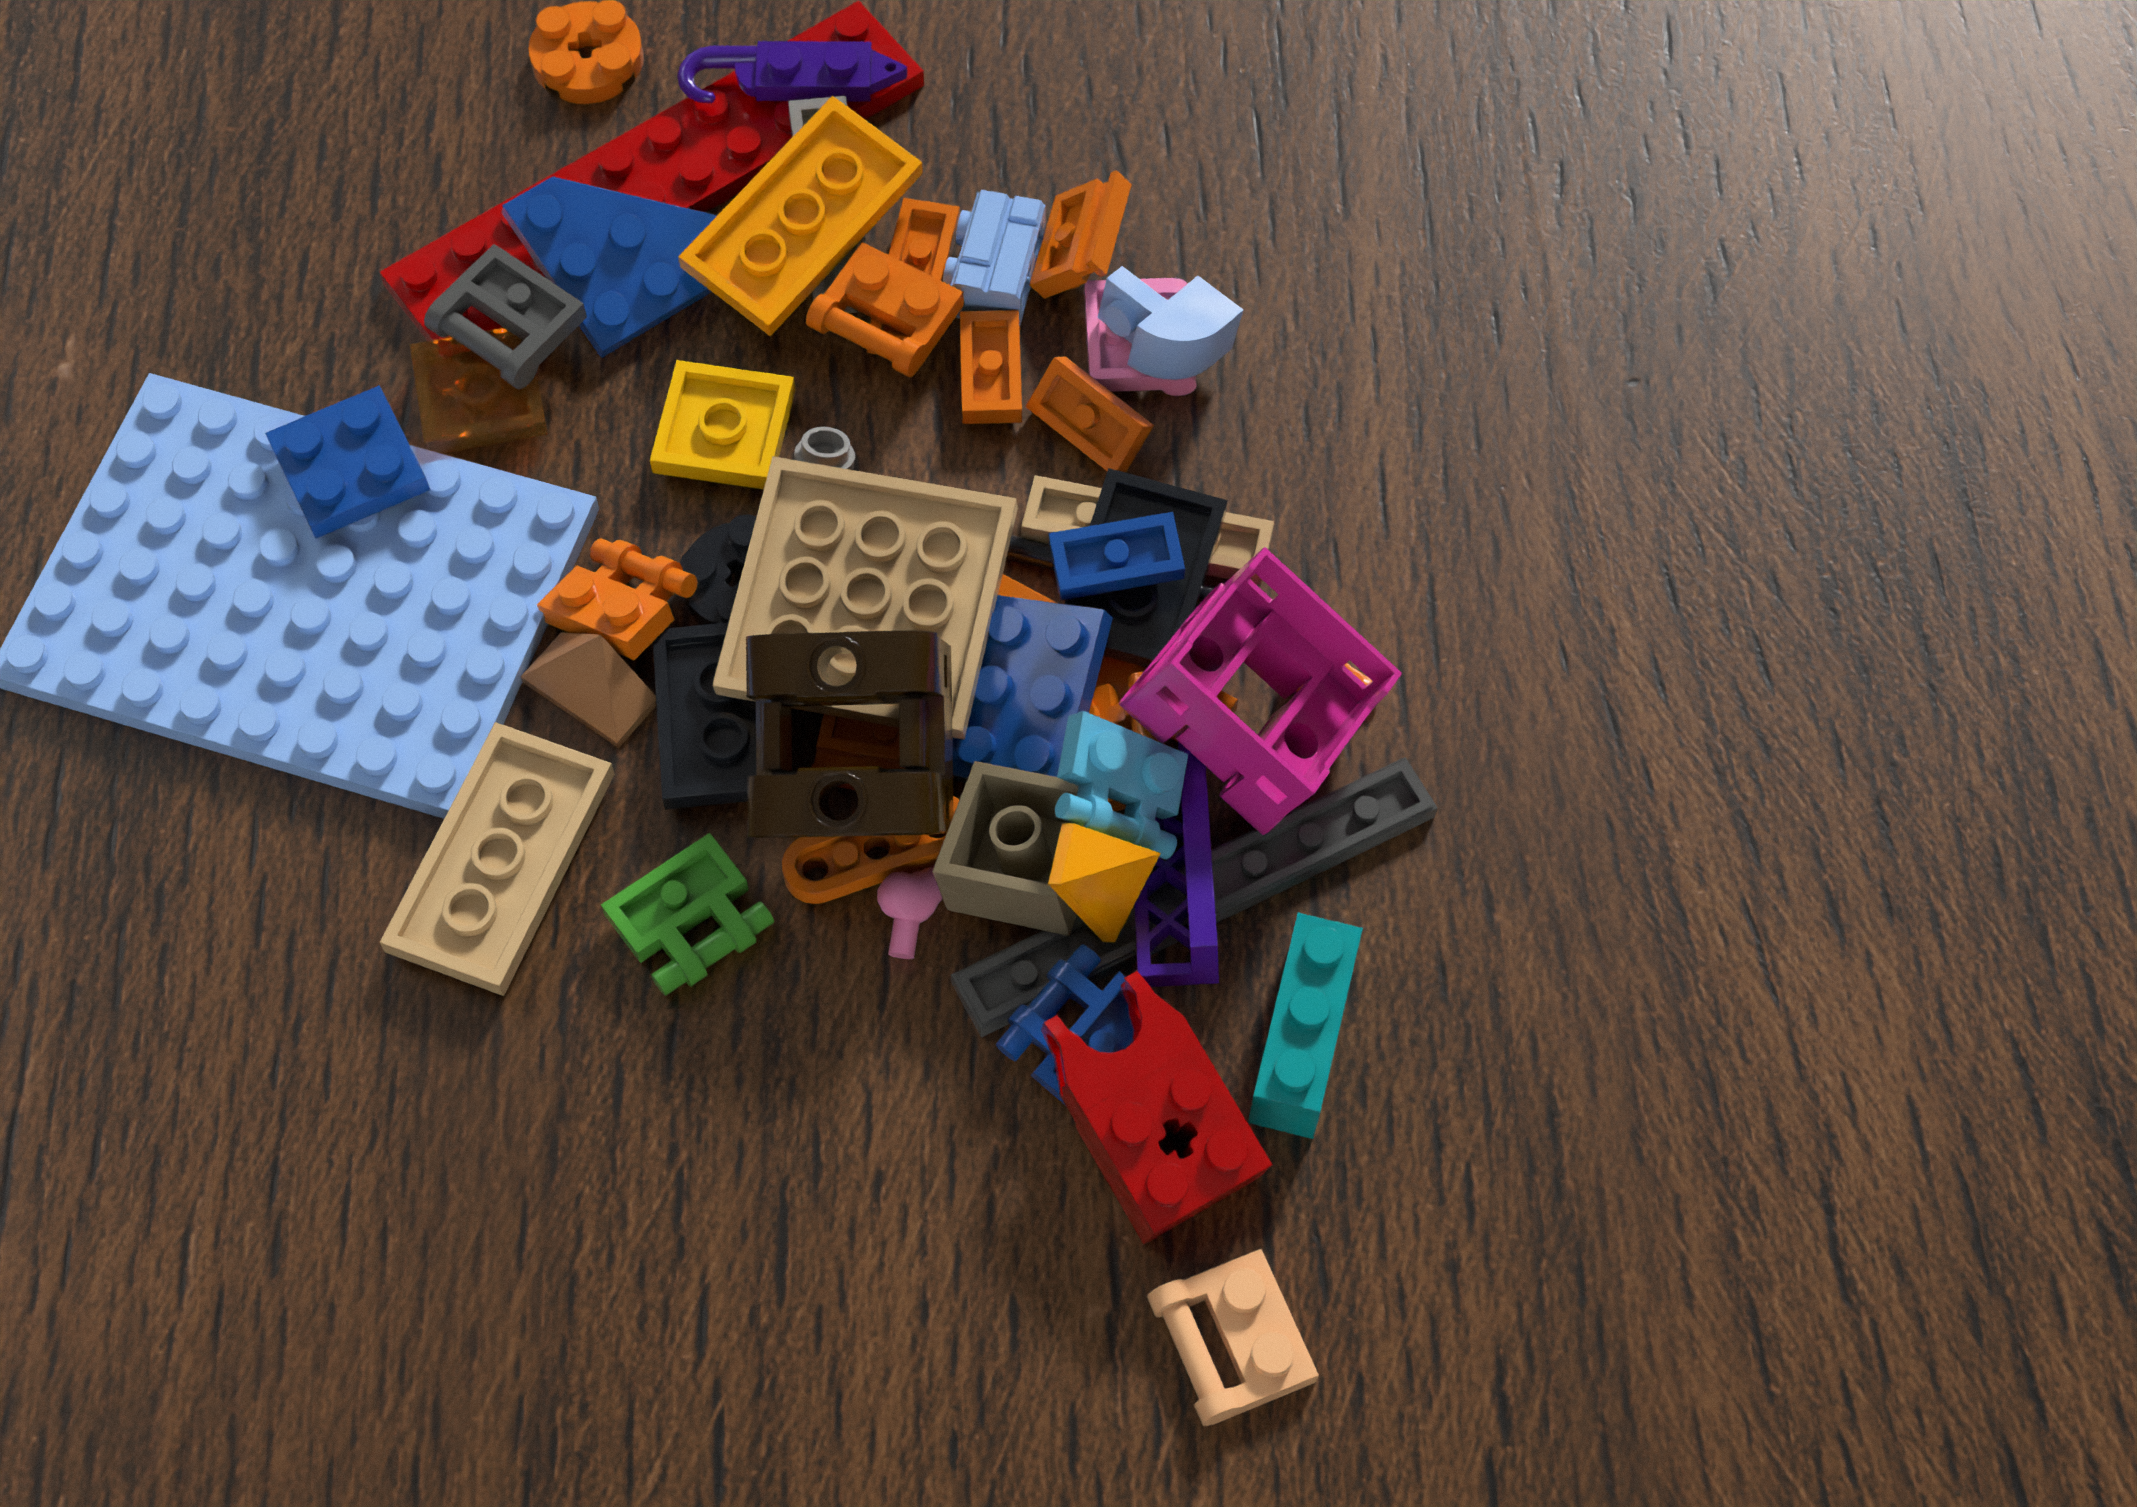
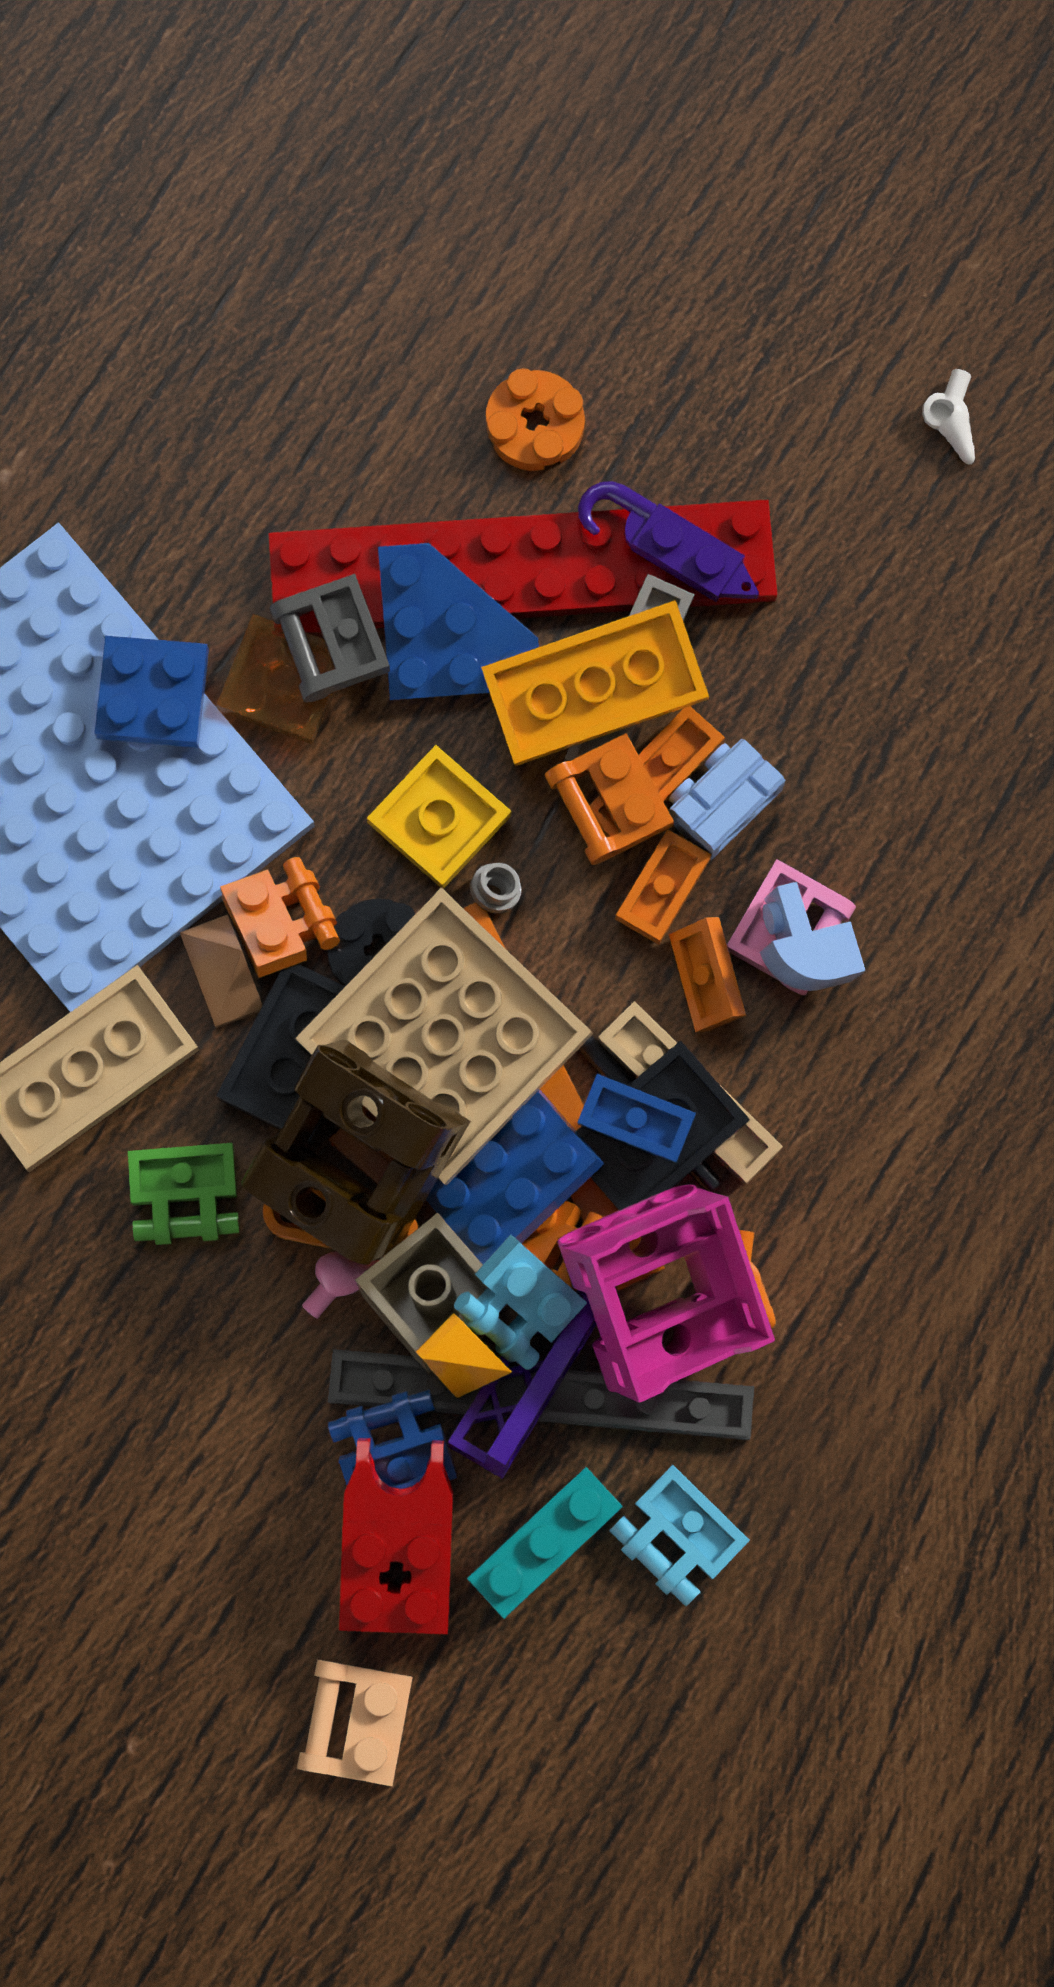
camera: 30 degrees right, 15 degrees up
(1080, 235) = (798, 818): orange plate -> none
(1437, 921) = (691, 1524): none -> medium azure plate

